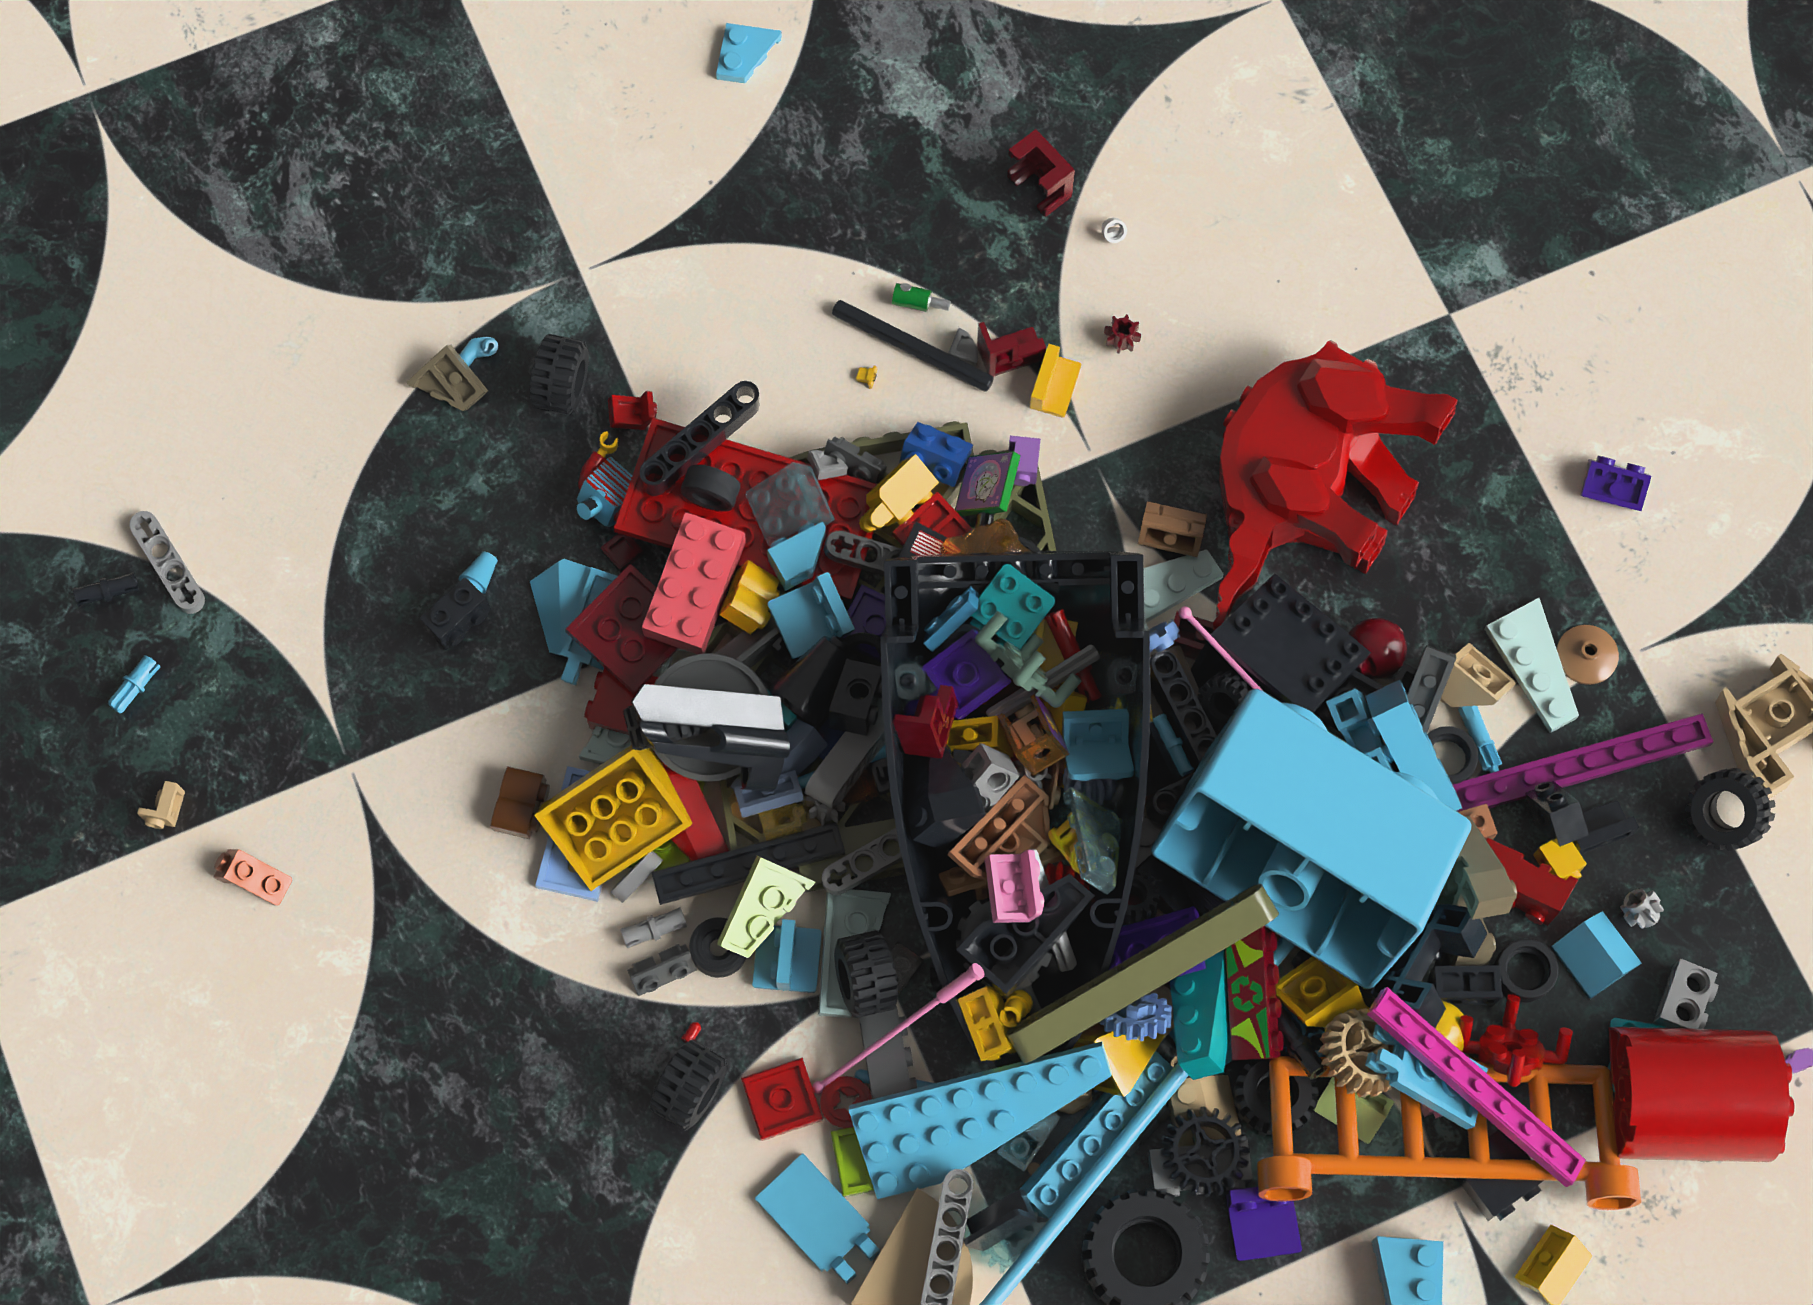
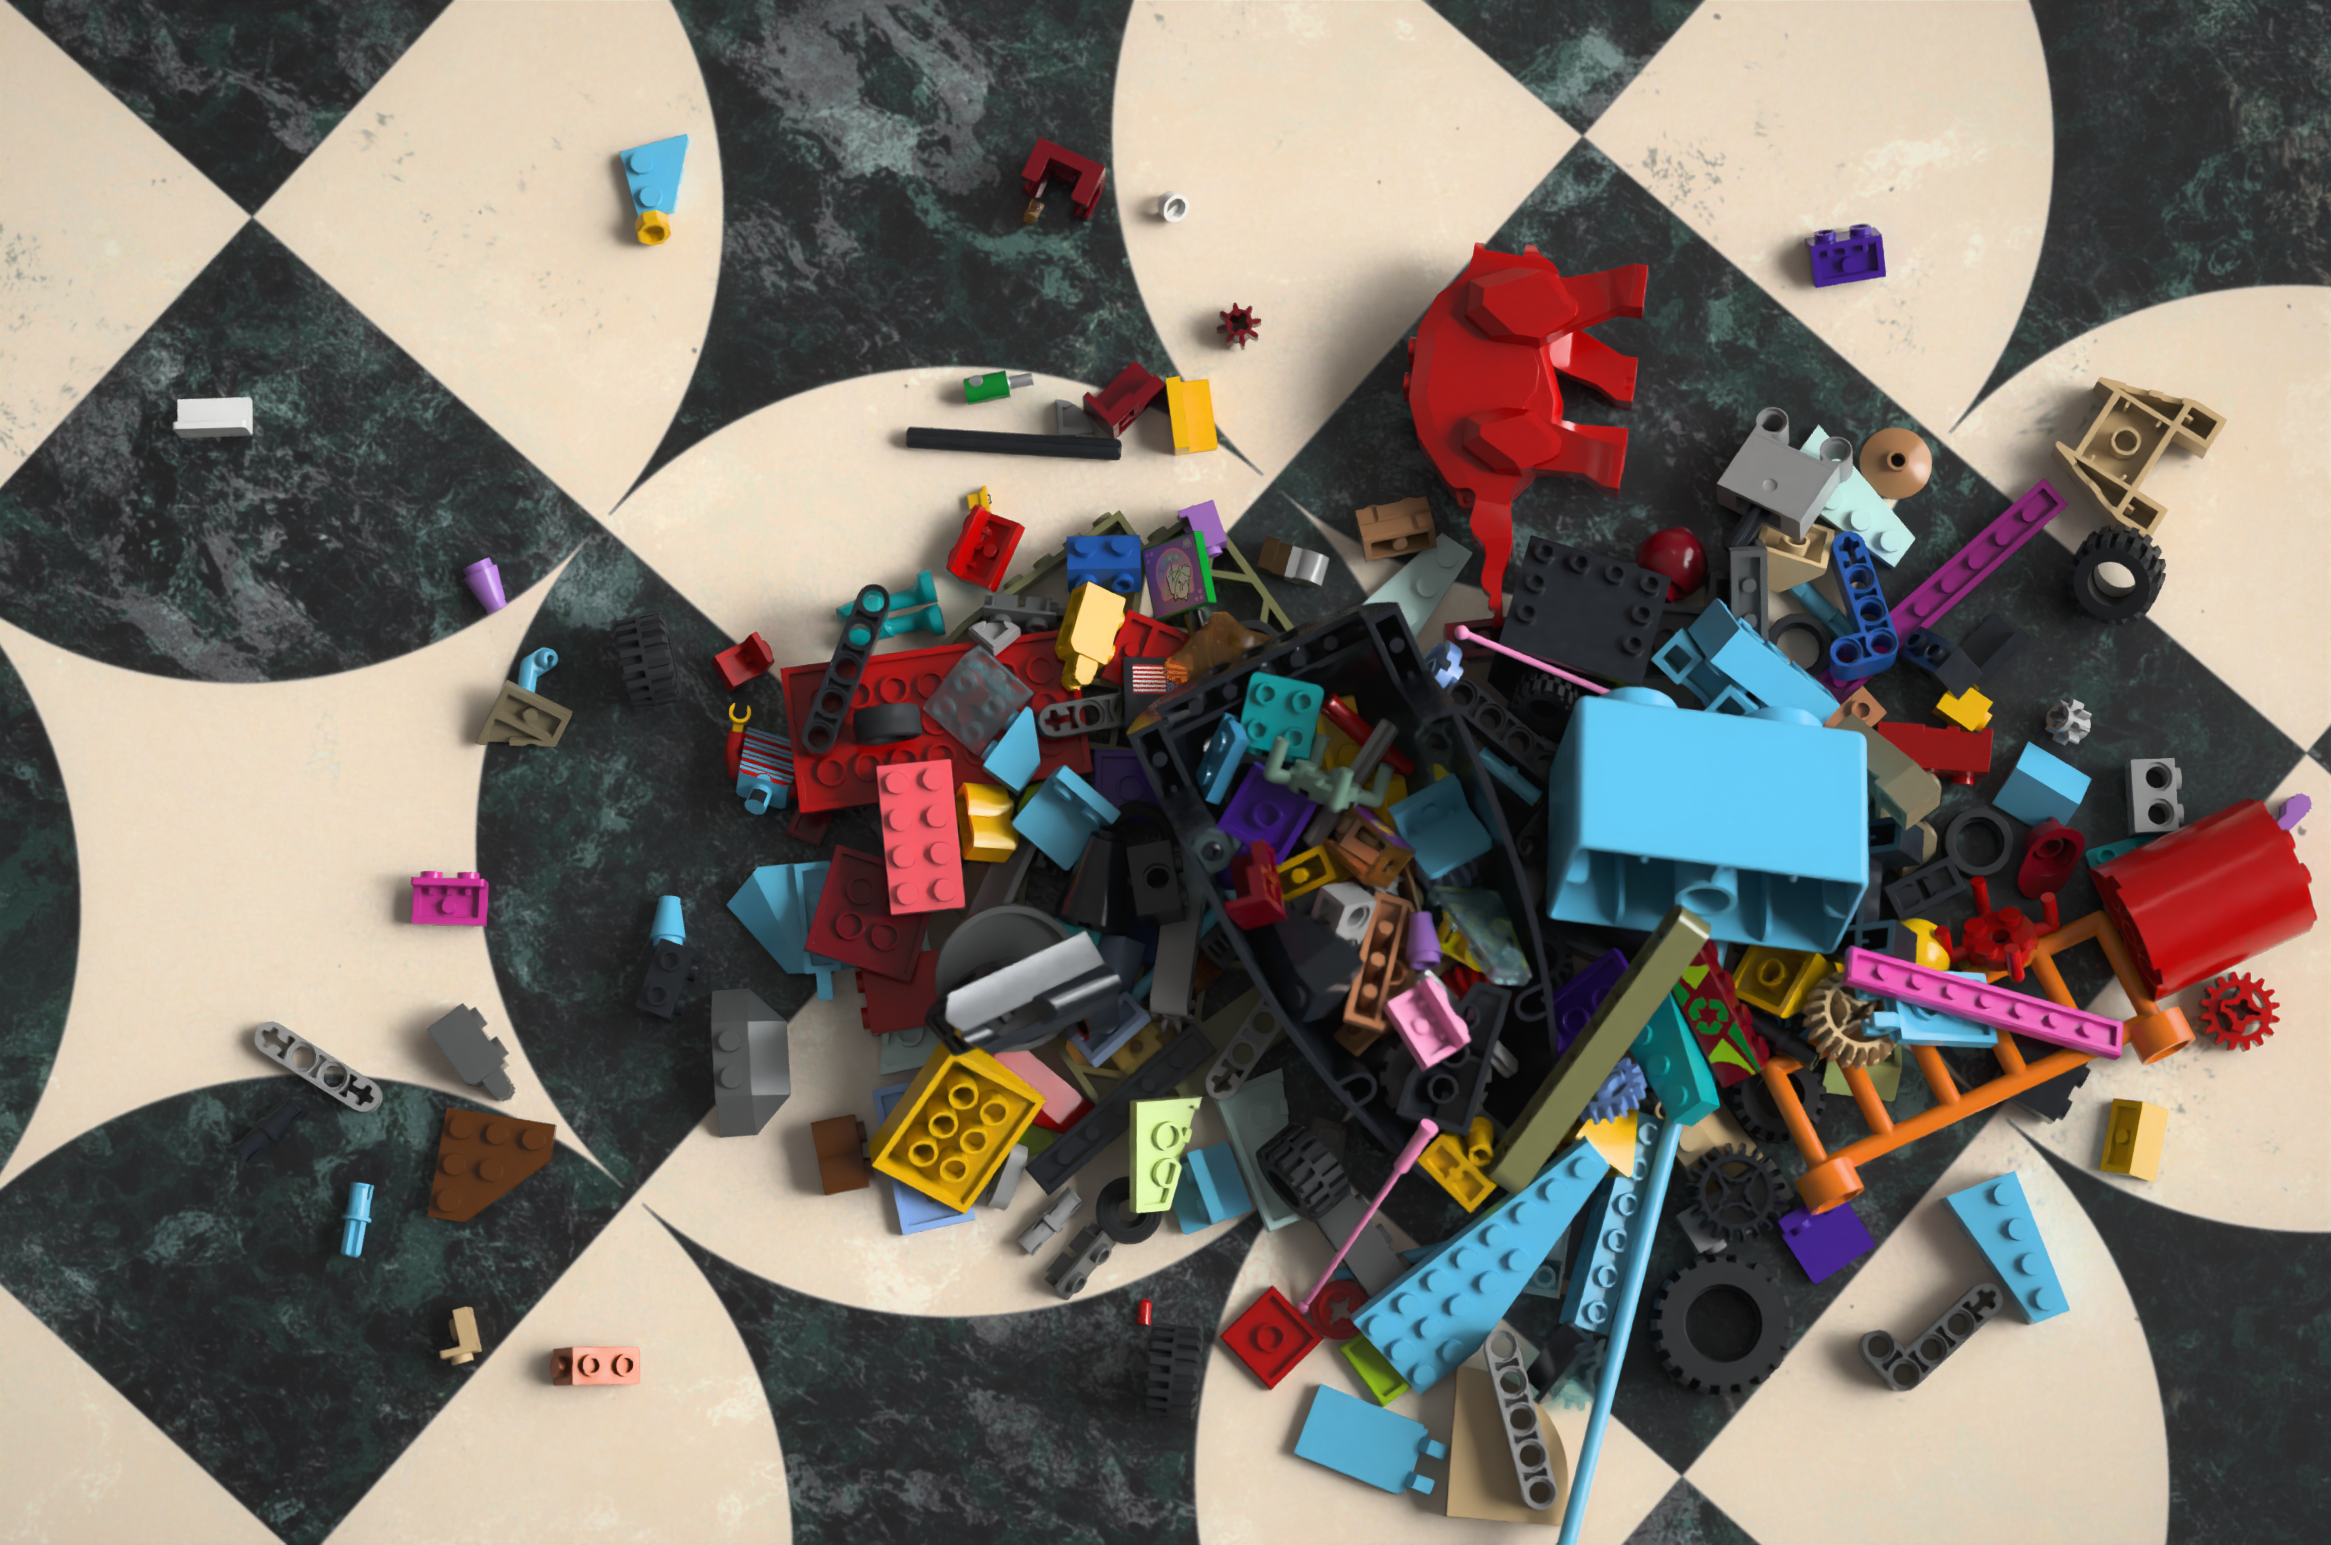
camera: 25 degrees left, 10 degrees up
(252, 686) = (484, 1160): none -> reddish brown plate
(285, 601) = (472, 1051): none -> dark grey hinge
(327, 483) = (449, 900): none -> dark pink bracket
(340, 79) = (214, 417): none -> white panel
(472, 274) = (486, 584): none -> medium lavender cone
(483, 702) = (747, 1061): none -> dark grey wedge
(723, 83) = (652, 227): none -> yellow tile
(785, 441) = (921, 593): none -> teal piece
(851, 408) = (984, 549): none -> red bracket
(1007, 192) = (1033, 212): none -> clear orange piece
(1042, 828) = (1422, 944): none -> medium lavender cone
(1079, 520) = (1292, 563): none -> leg
(1489, 622) = (1778, 483): none -> light grey piece
(1519, 742) = (1857, 603): none -> blue beam
(1580, 1007) = (2049, 858): none -> dark red piece
(1697, 1208) = (2236, 1027): none -> red gear

